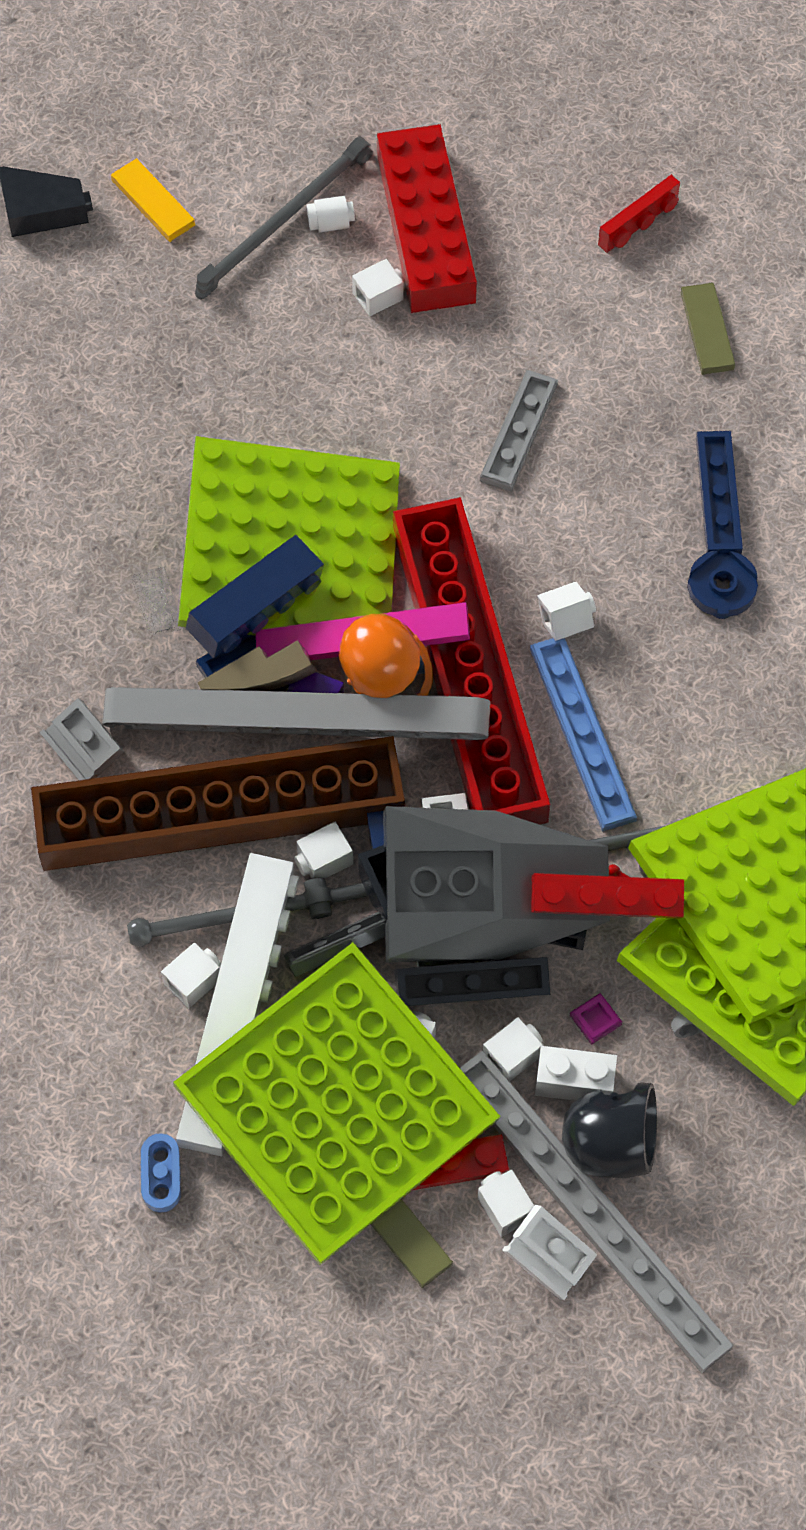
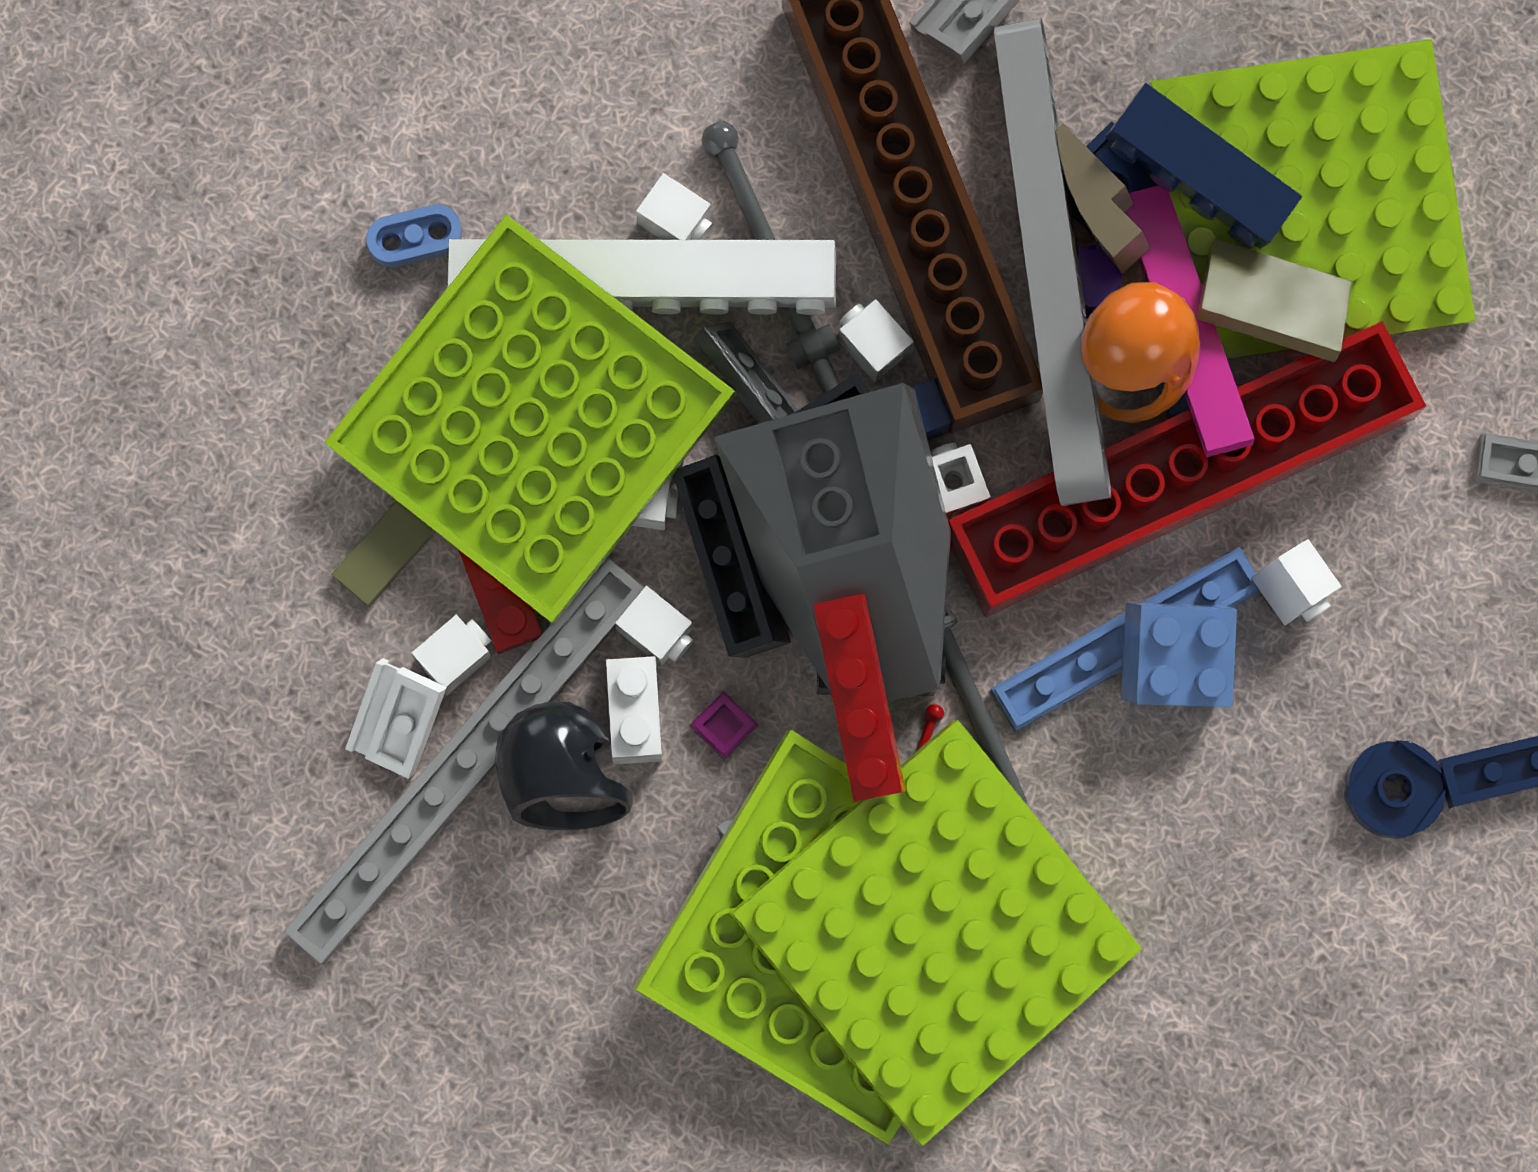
camera: 70 degrees right, 15 degrees up
(363, 573) = (1274, 300): none -> tile
(605, 694) = (1179, 655): none -> medium blue brick

